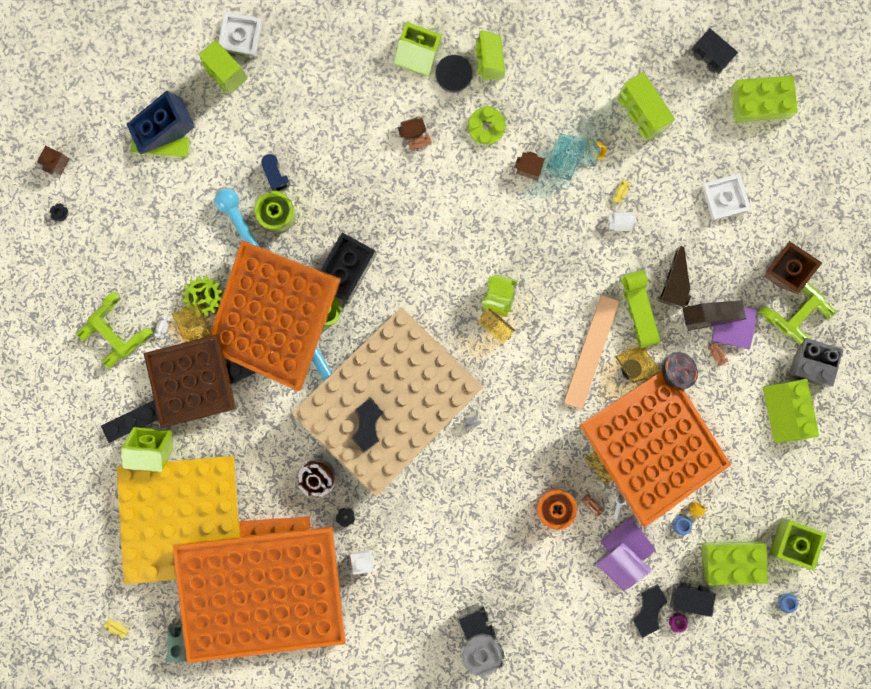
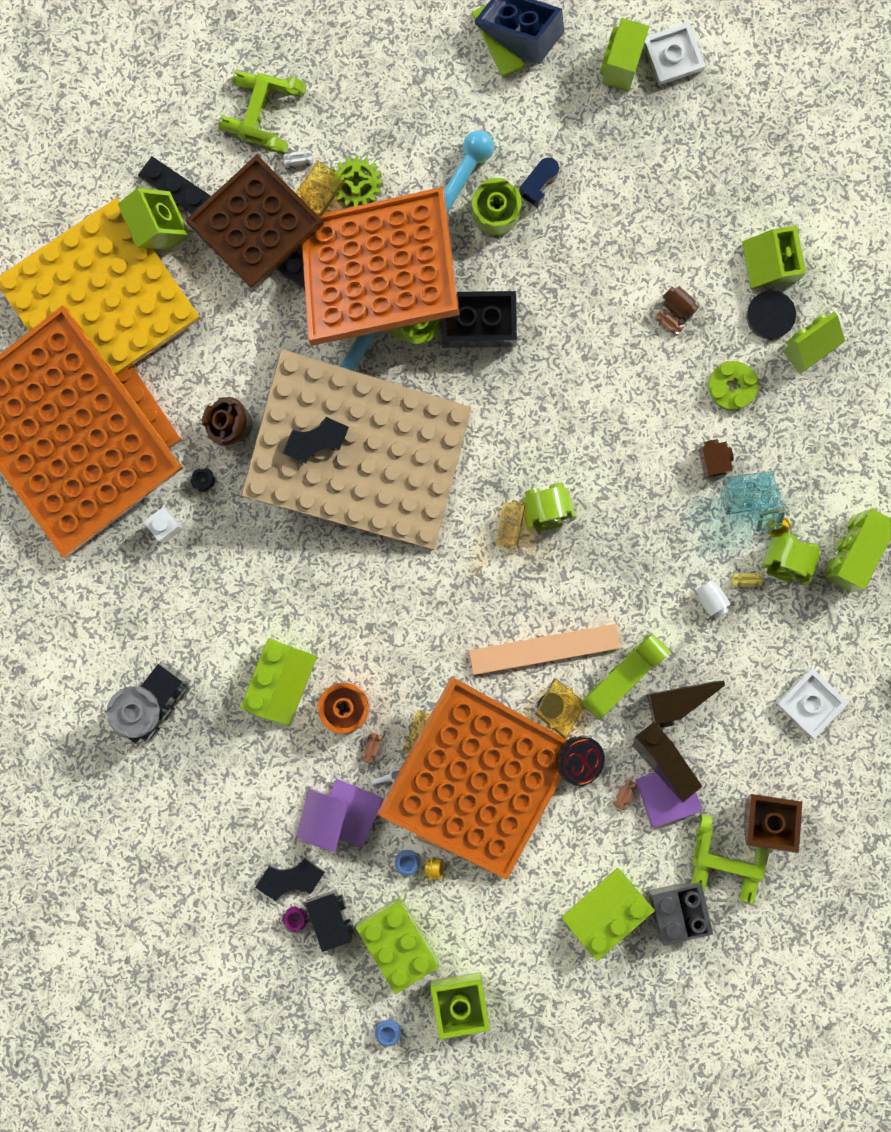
camera: 60 degrees right, 0 degrees up
(471, 422) = (387, 558): light grey bush -> none
(513, 543) = (278, 682): none -> lime slope
(625, 155) = (791, 559): none -> lime brick

